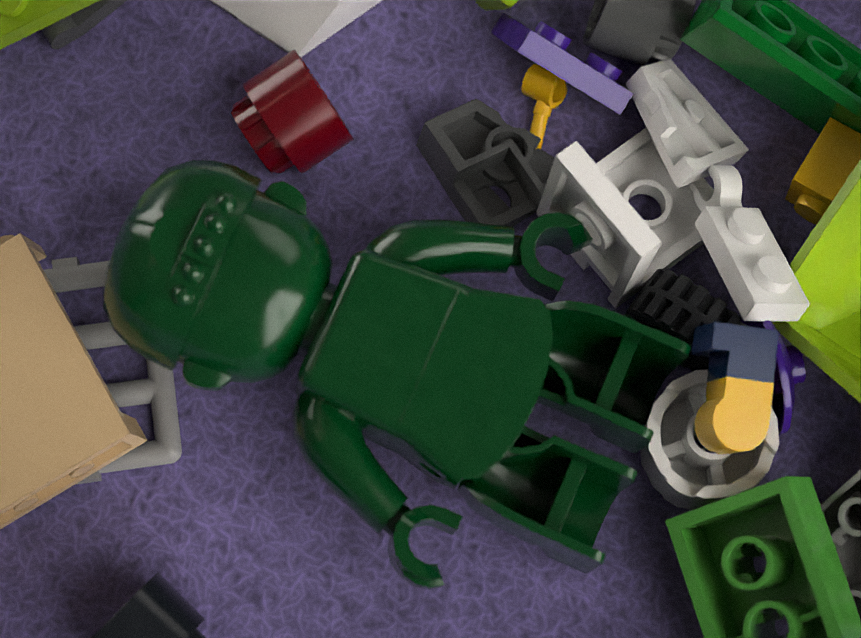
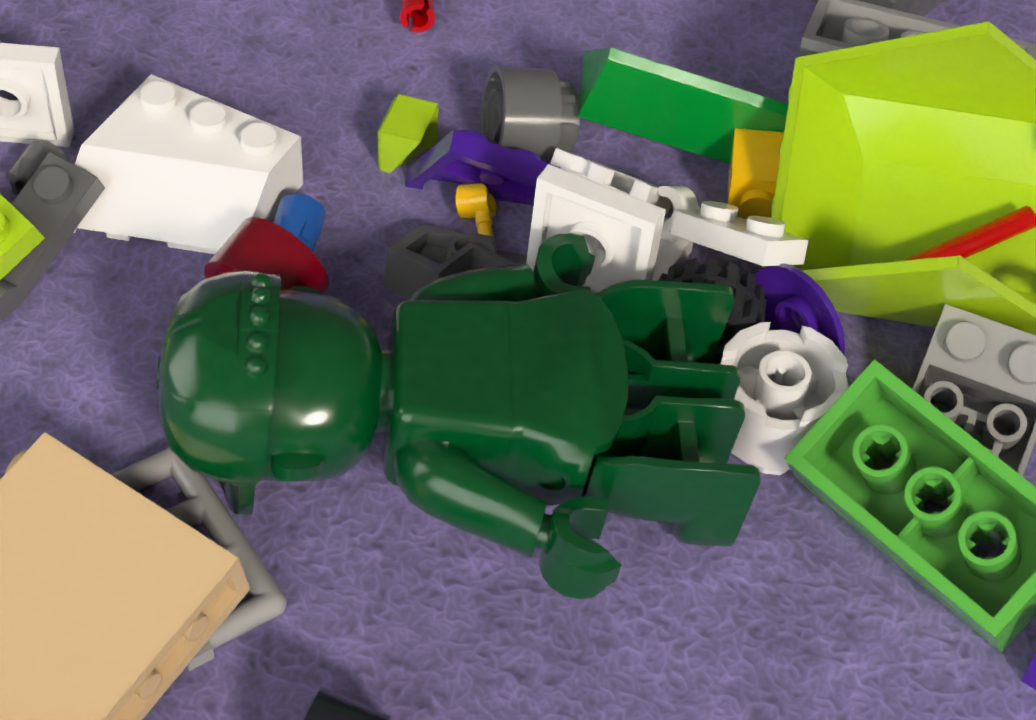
camera: 30 degrees left, 25 degrees down
(360, 51) = (301, 217): none -> blue hose
(737, 385) = (786, 311): leg -> none

